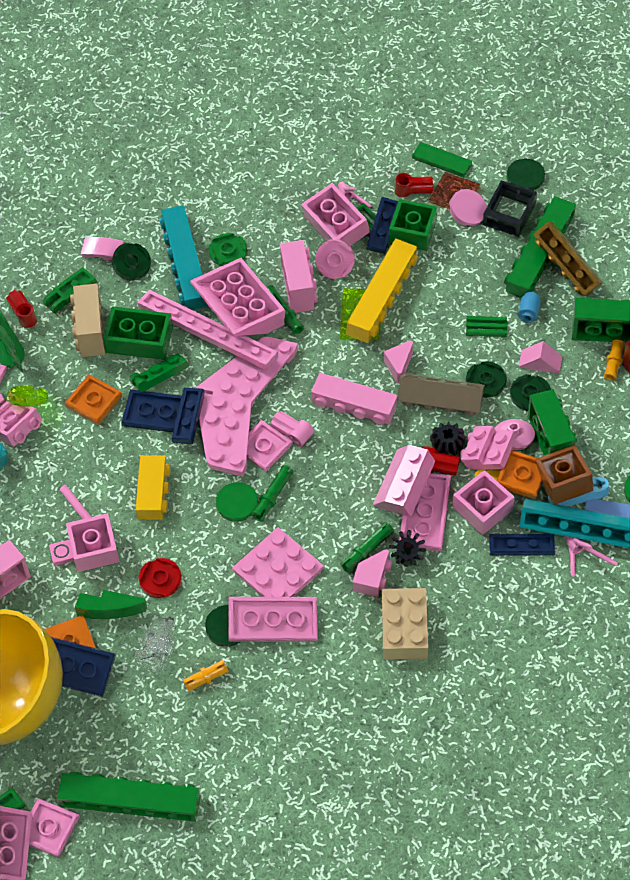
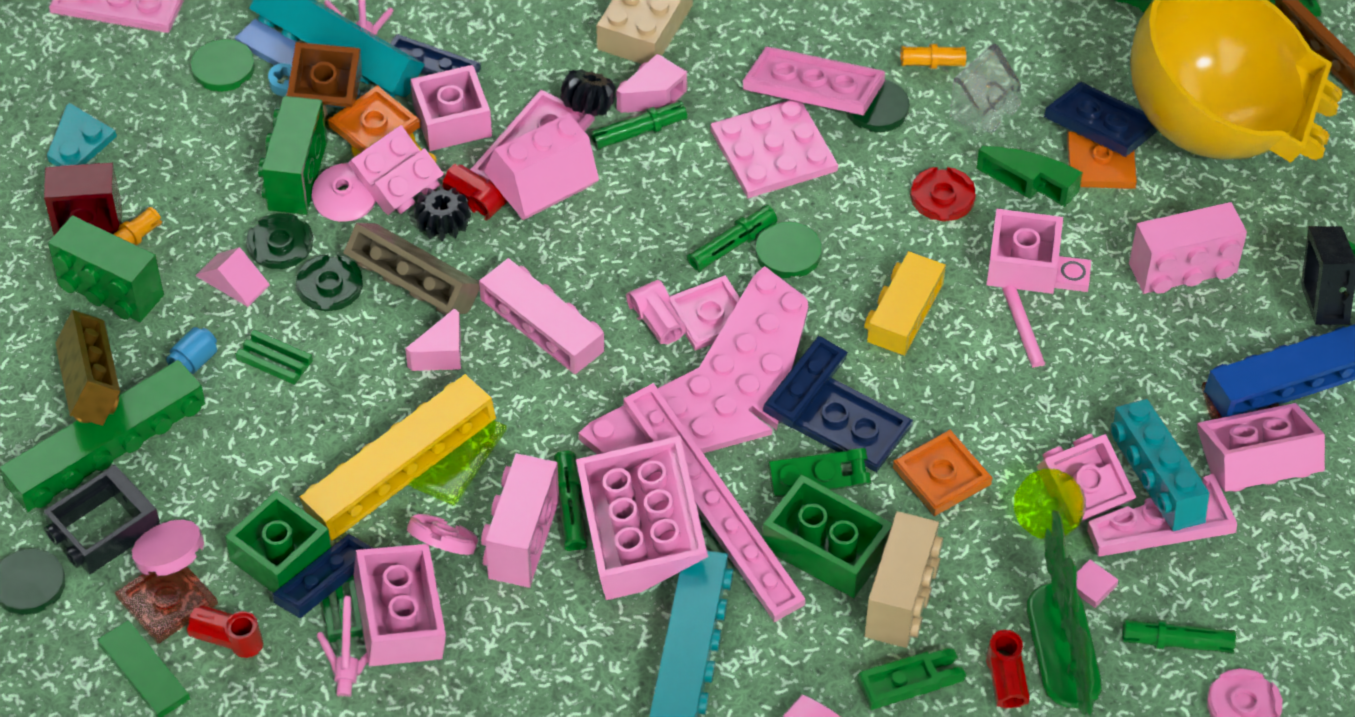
camera: 160 degrees left, 5 degrees down
(131, 261) = (783, 682): dark green tile -> none
(230, 253) = (599, 659): green tile -> none

